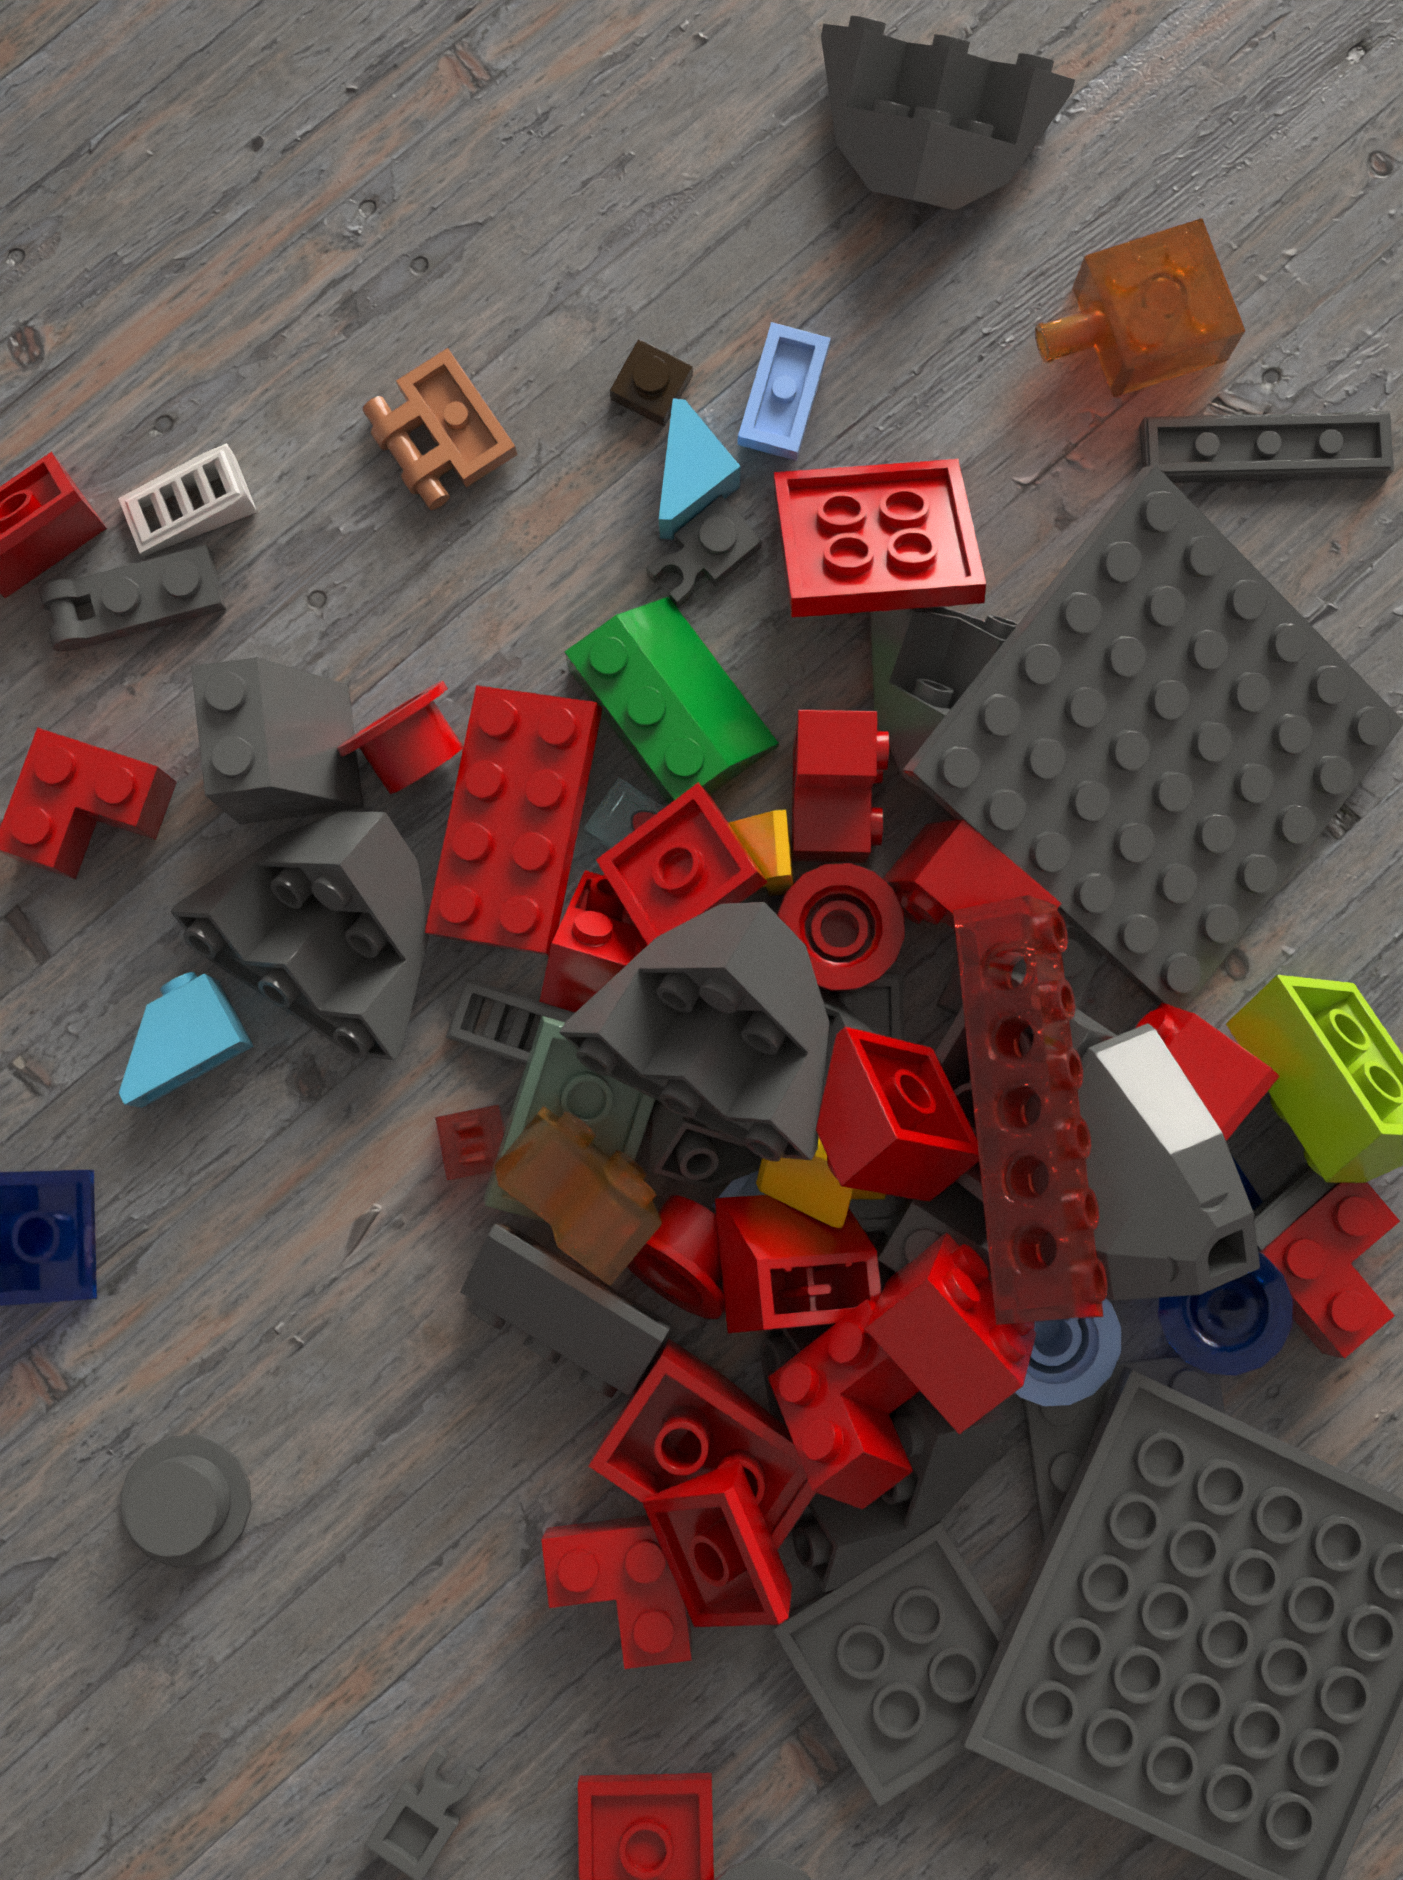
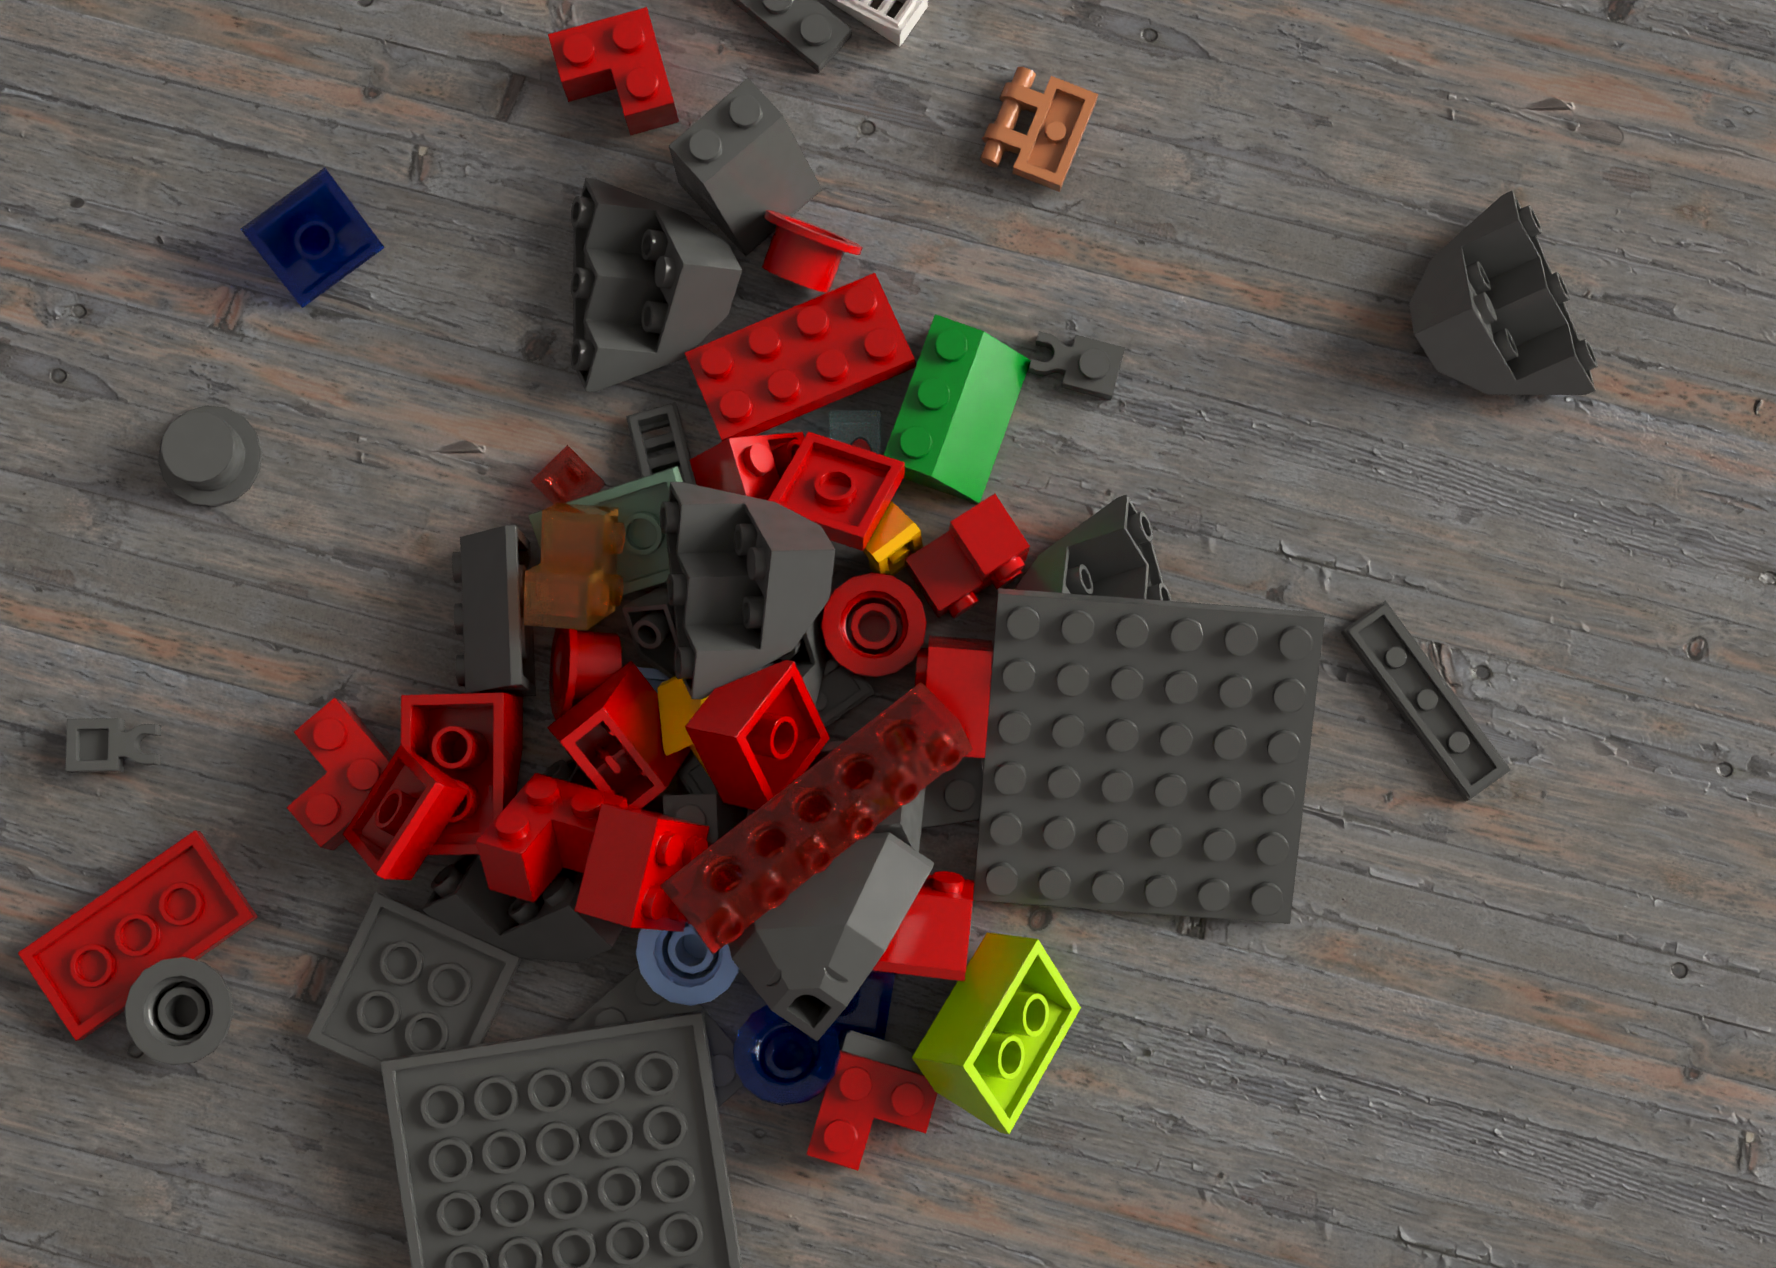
camera: 55 degrees right, 0 degrees up
(182, 1038) = (508, 244): medium azure slope -> none
(651, 382) = (1174, 247): dark brown plate -> none
(694, 470) = (1125, 316): medium azure slope -> none
(783, 391) = (1229, 340): light blue plate -> none
(877, 538) = (1161, 470): plate -> none
(1149, 310) = (1462, 552): clear orange brick -> none

